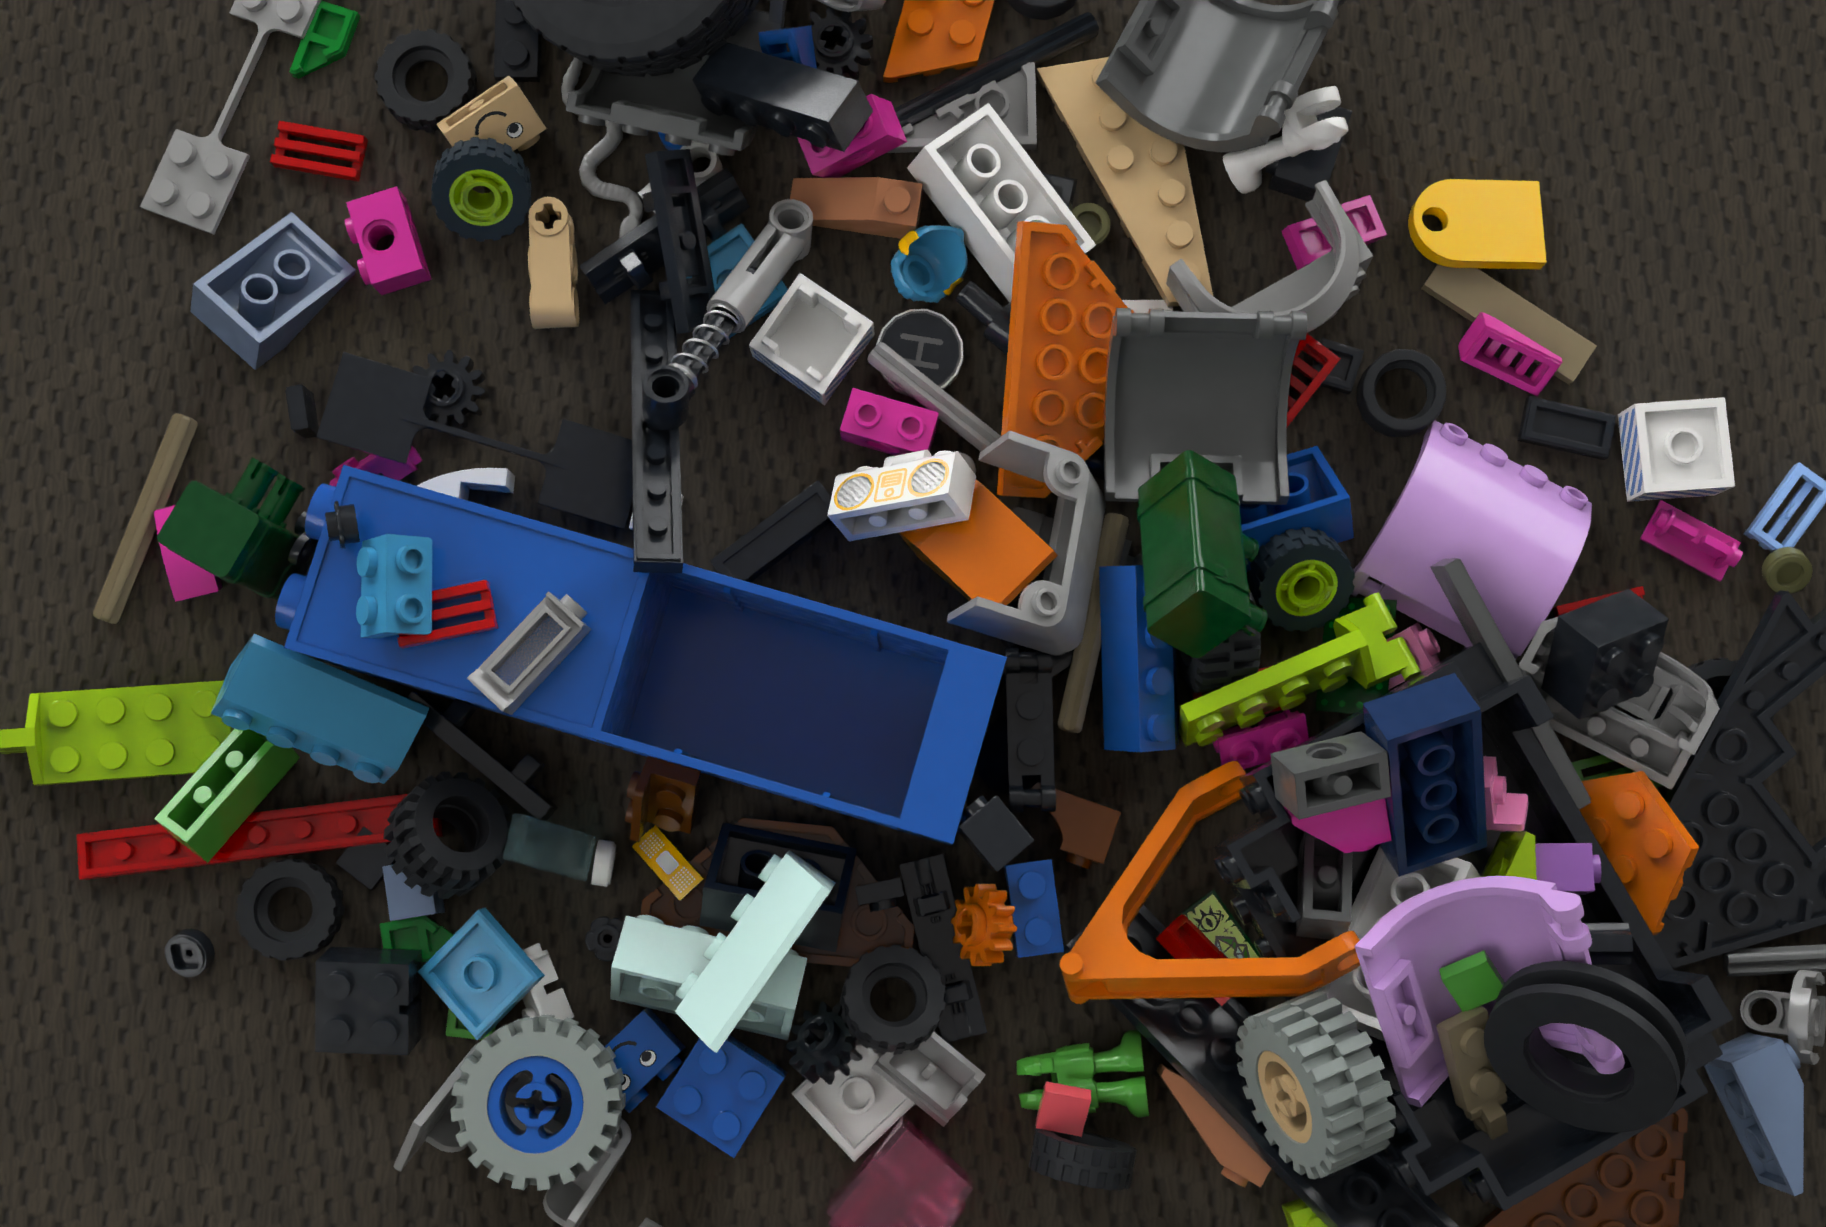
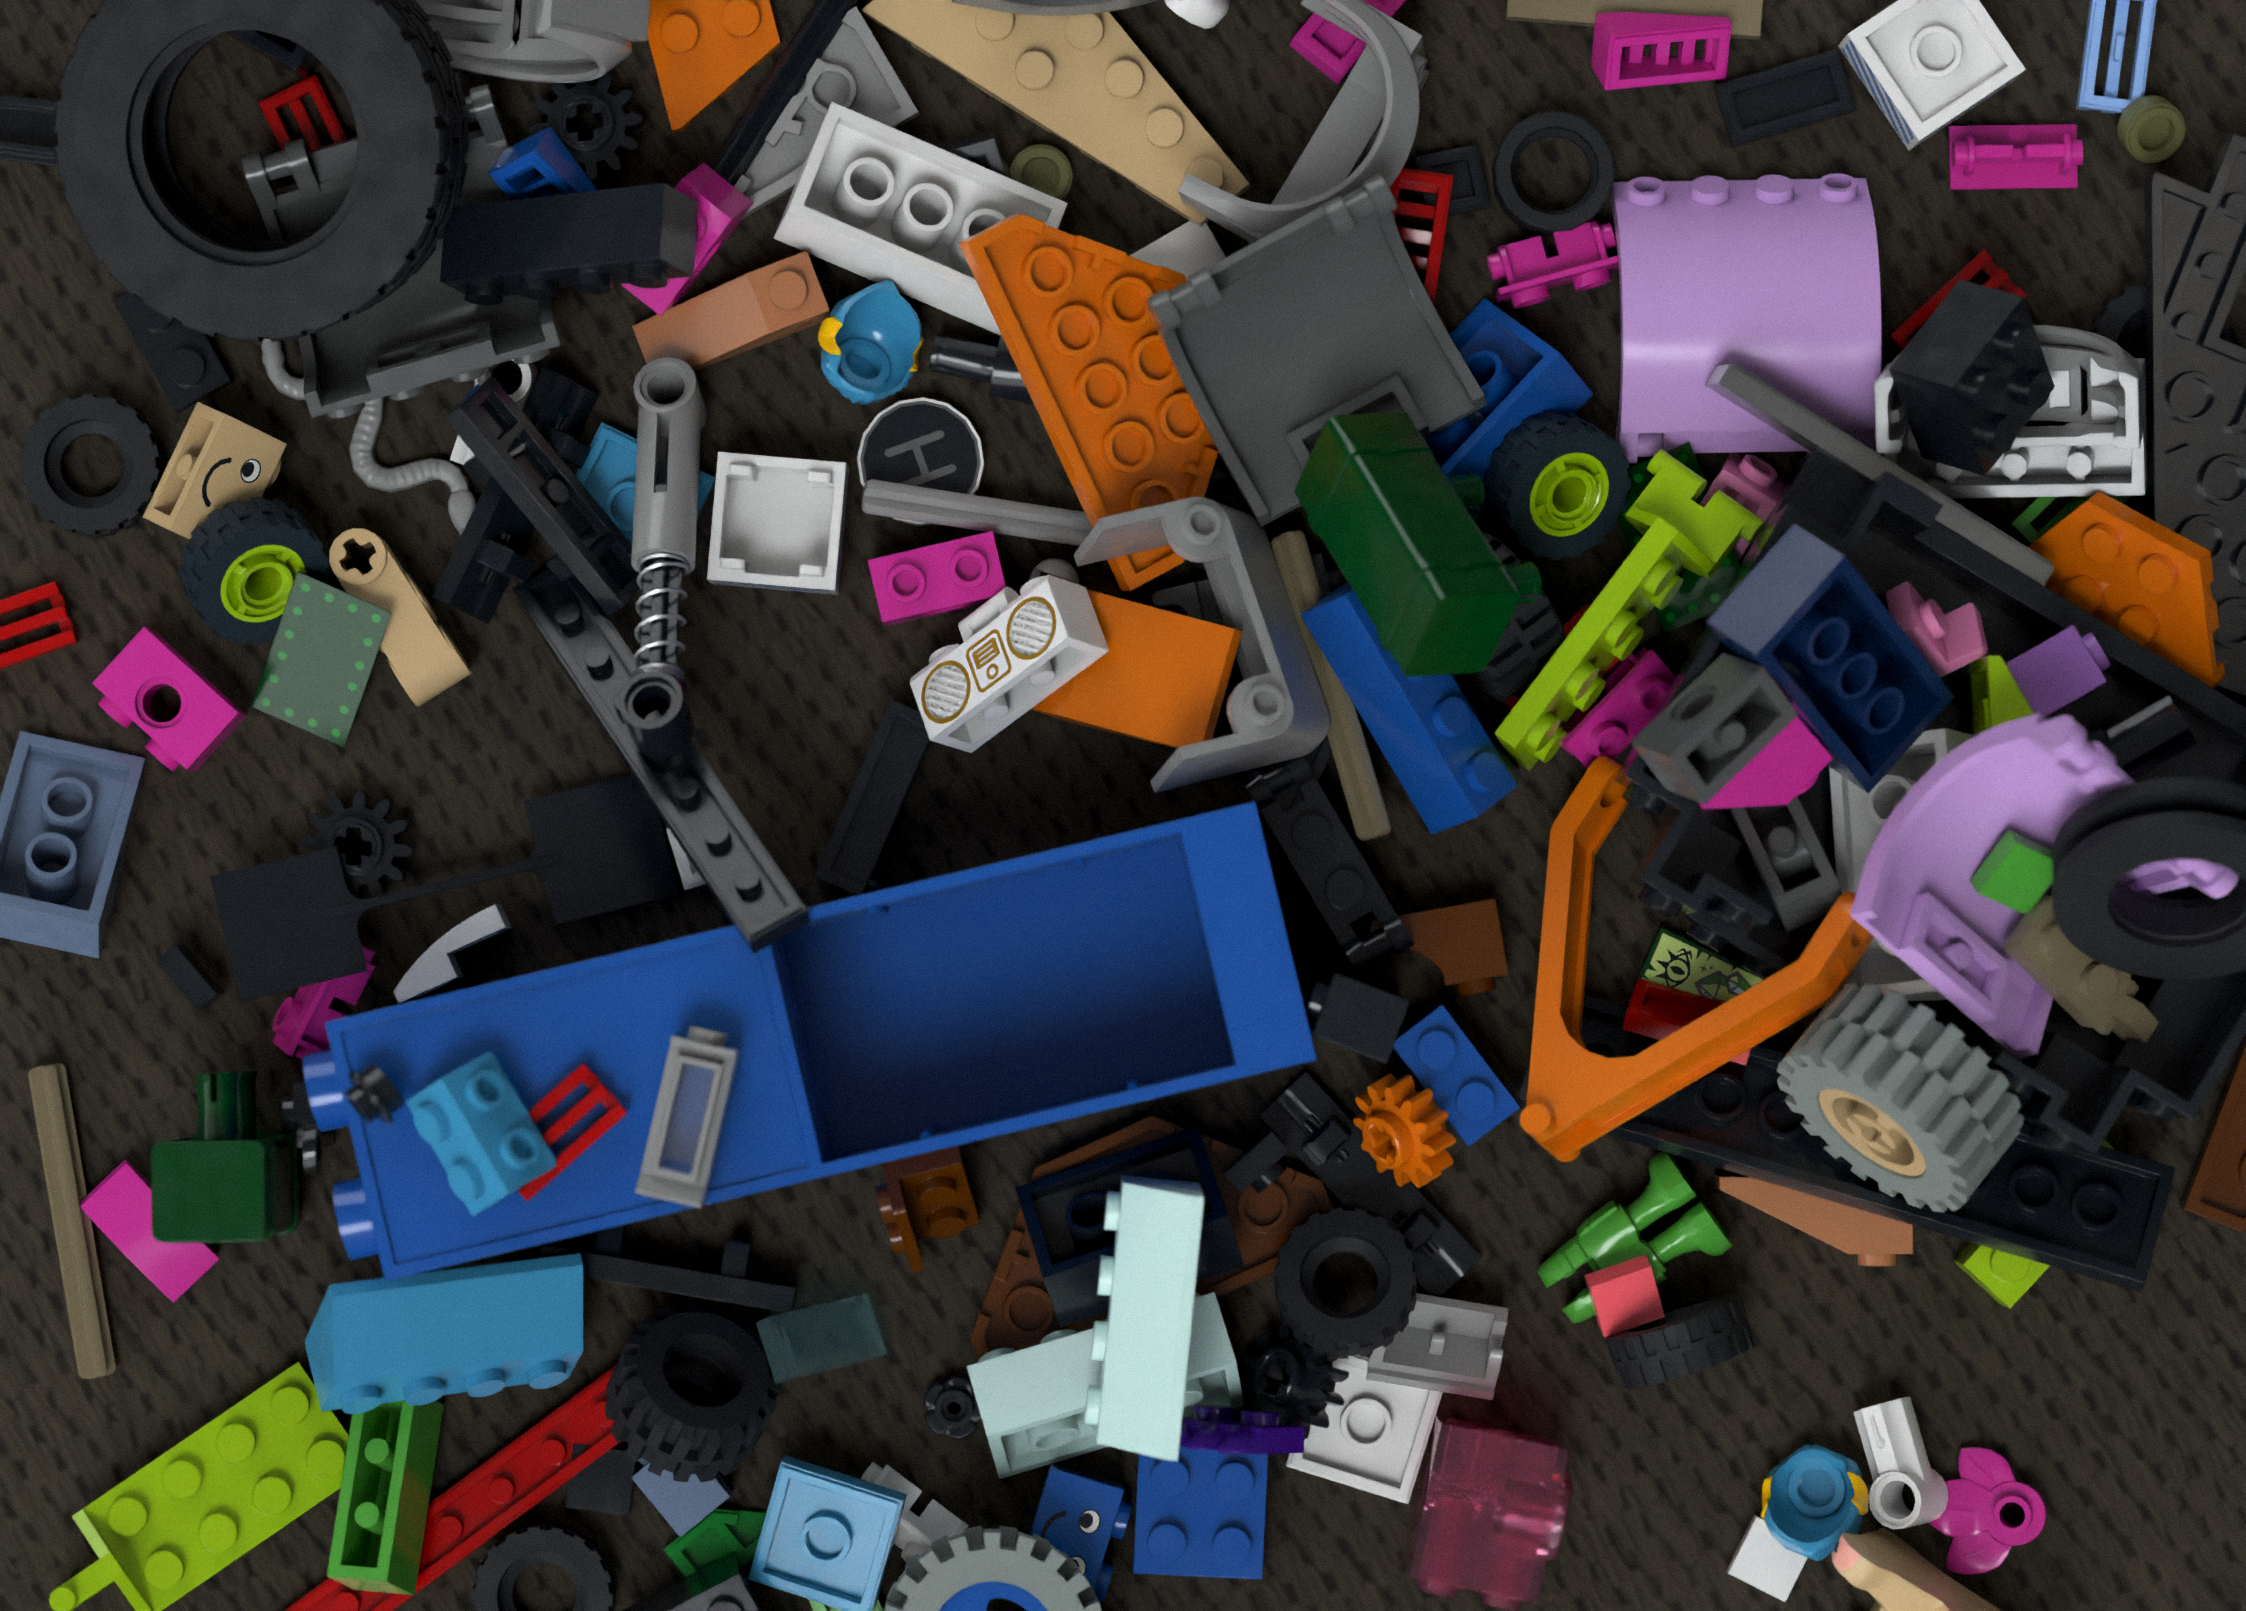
camera: 30 degrees left, 5 degrees up
(492, 266) = (321, 659): none -> dark green sticker
(603, 863) = (896, 1319): white tile -> none
(667, 863) = (974, 1275): yellow sticker -> none
(778, 1061) = (1251, 1434): none -> dark purple plate
(1354, 447) = (1531, 274): none -> dark pink hinge

